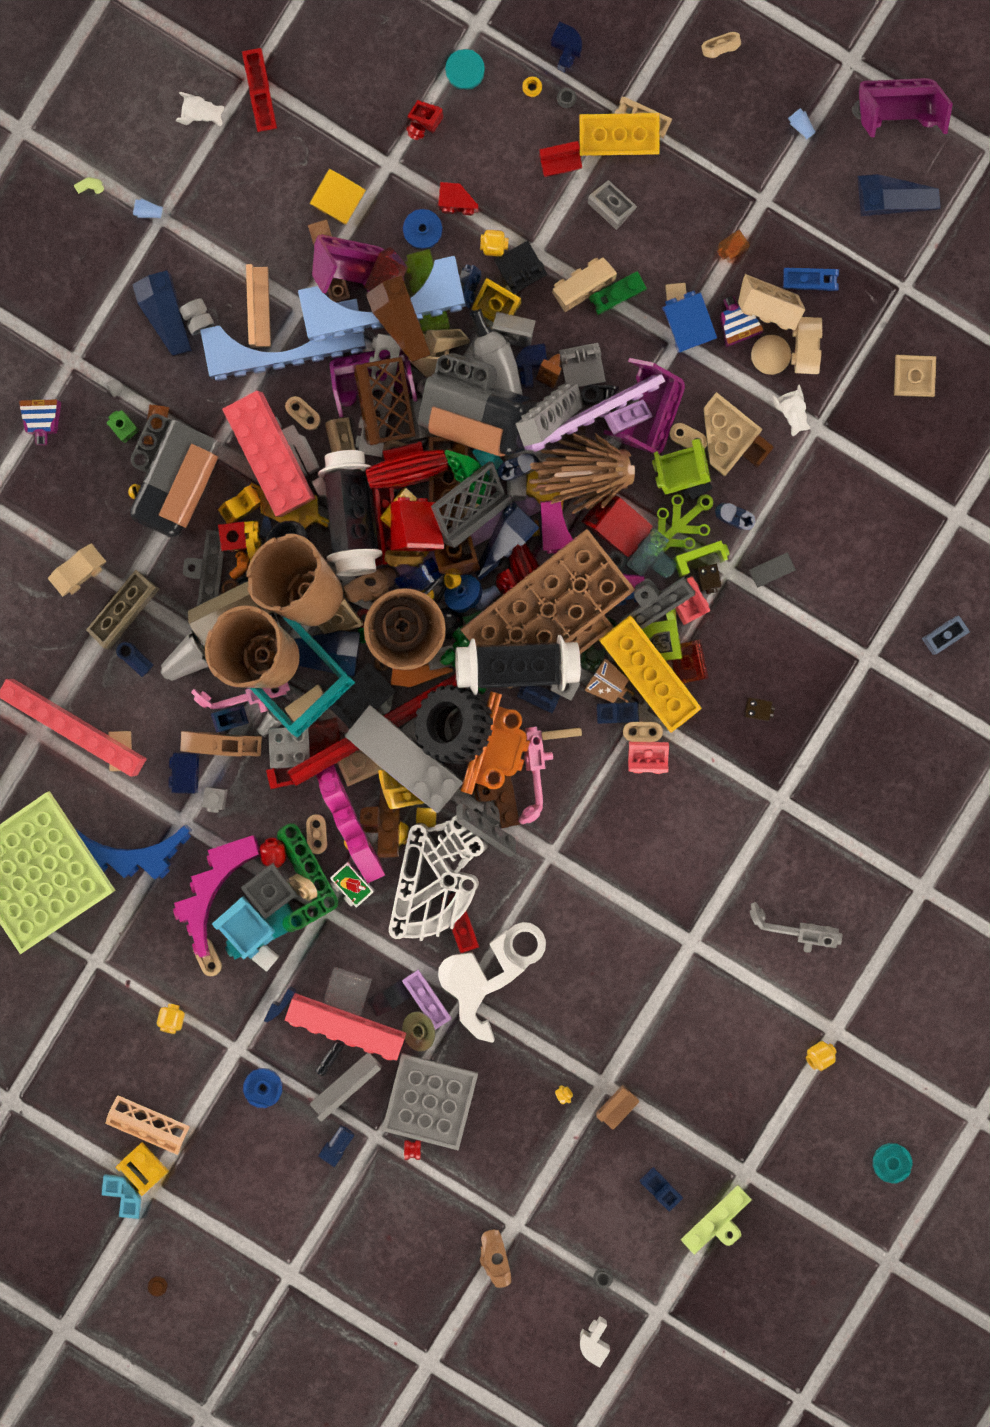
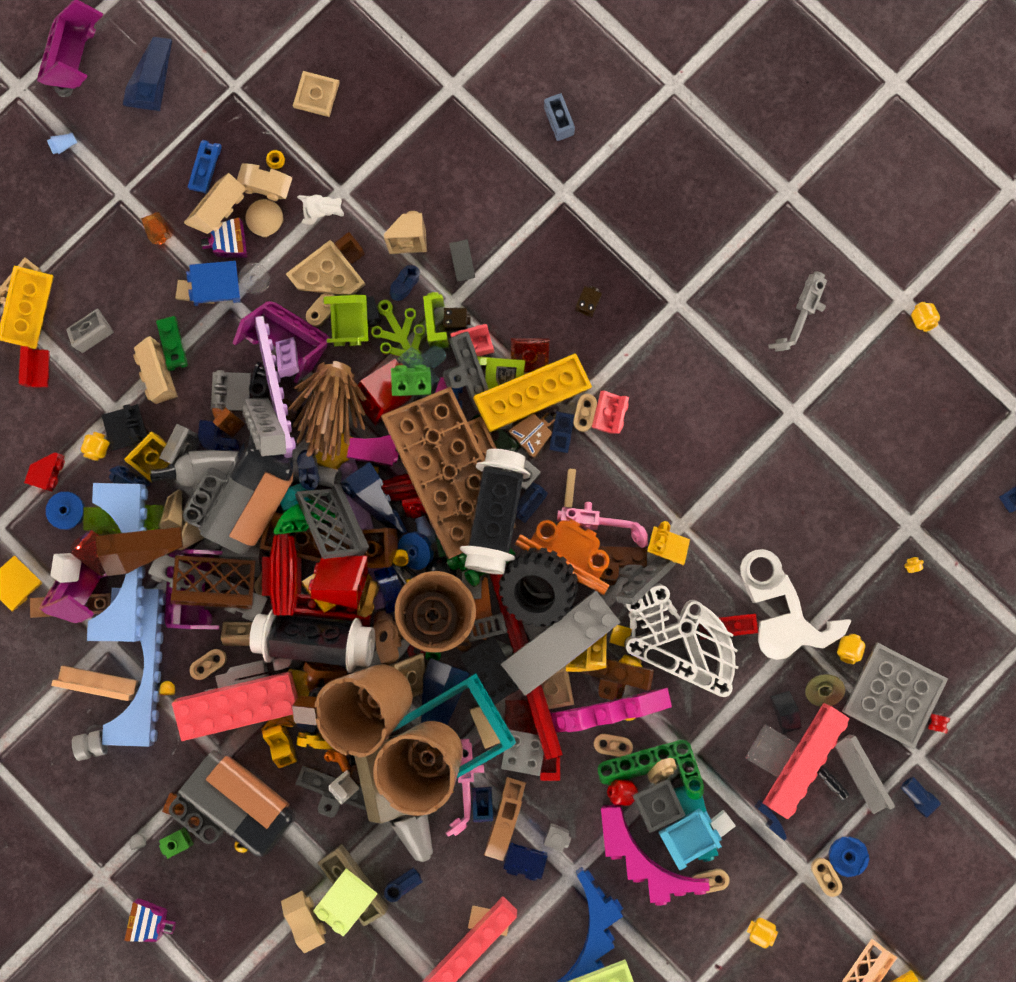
camera: 70 degrees left, 5 degrees down
(105, 606) = (344, 902): none -> yellowish green slope
(160, 305) = (72, 777): dark blue wedge -> none
(214, 578) = (343, 787): none -> white panel
(230, 547) = (318, 760): red piece -> none
(238, 1069) = (825, 876): none -> tan plate
(269, 378) = (167, 688): none -> yellow hinge
(269, 722) = (494, 766): light grey cone -> none
(280, 524) = (305, 710): none -> panel
(321, 526) = (317, 671): none -> dark orange tile
(351, 884) = (669, 722): brick -> none
(364, 249) = (65, 568): none -> white panel
(412, 695) = (501, 623): none -> dark grey slope
(426, 998) = (795, 675): lavender plate -> none
(465, 1048) = (851, 649): none -> yellow head
(528, 844) = (668, 544): none -> yellow hinge
(617, 1107) = (935, 517): medium nougat panel -> none
(631, 549) = (411, 380): none -> bright green brick
(700, 368) = (260, 284): none -> clear piece
(783, 508) = (407, 234): none -> tan slope
(841, 350) = (275, 154): none -> yellow plate

